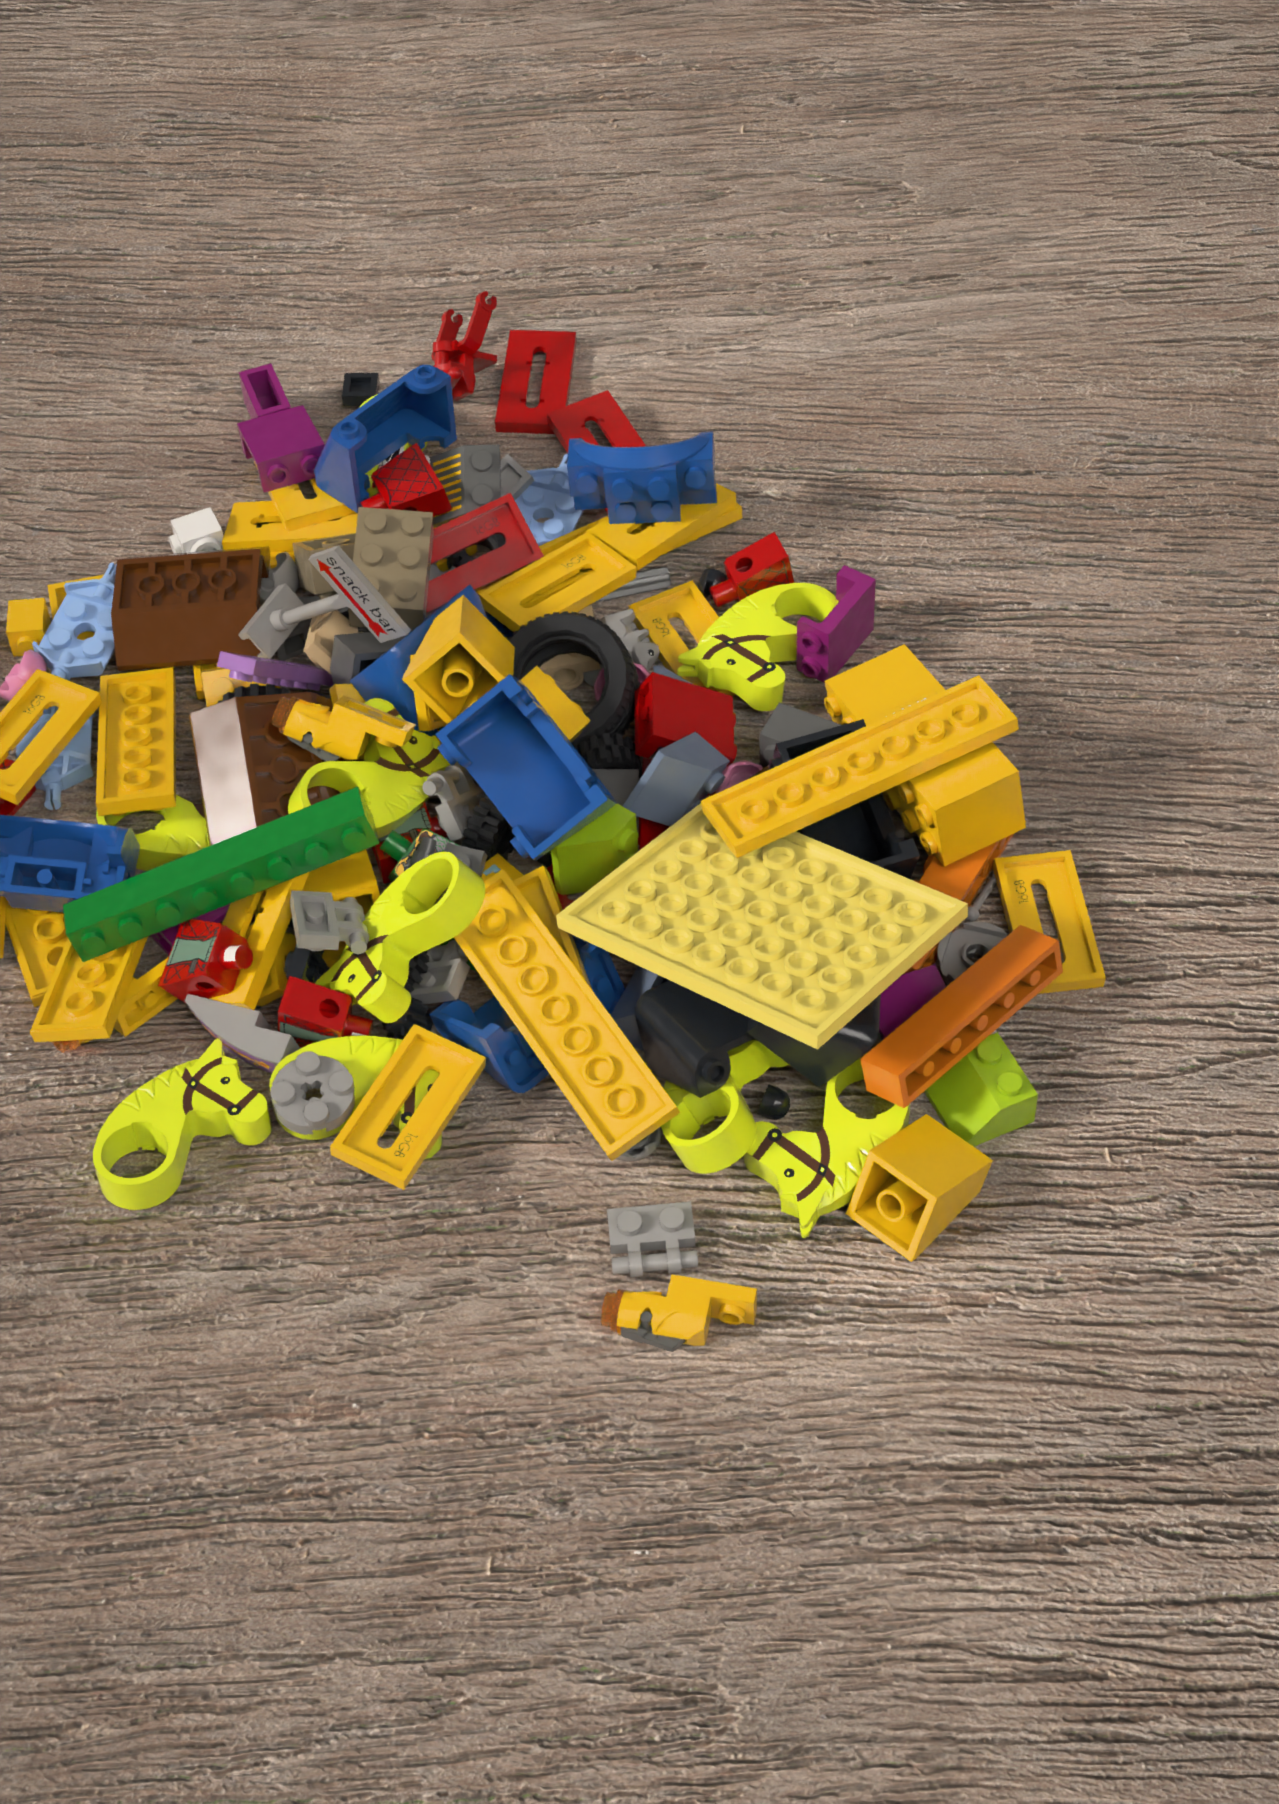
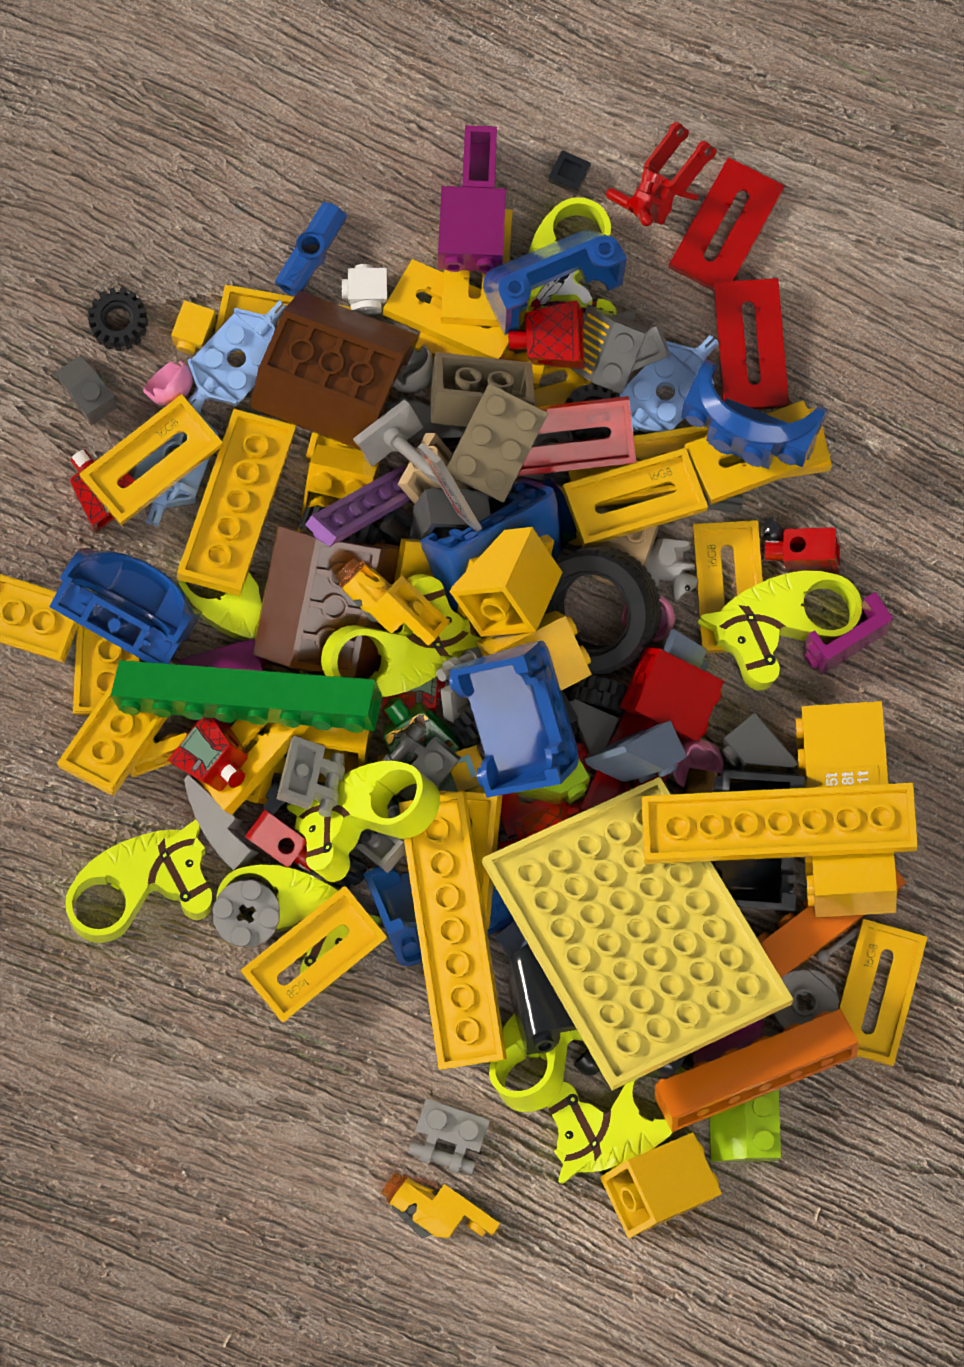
camera: 20 degrees right, 25 degrees up
(126, 523) = (321, 233): none -> blue piece

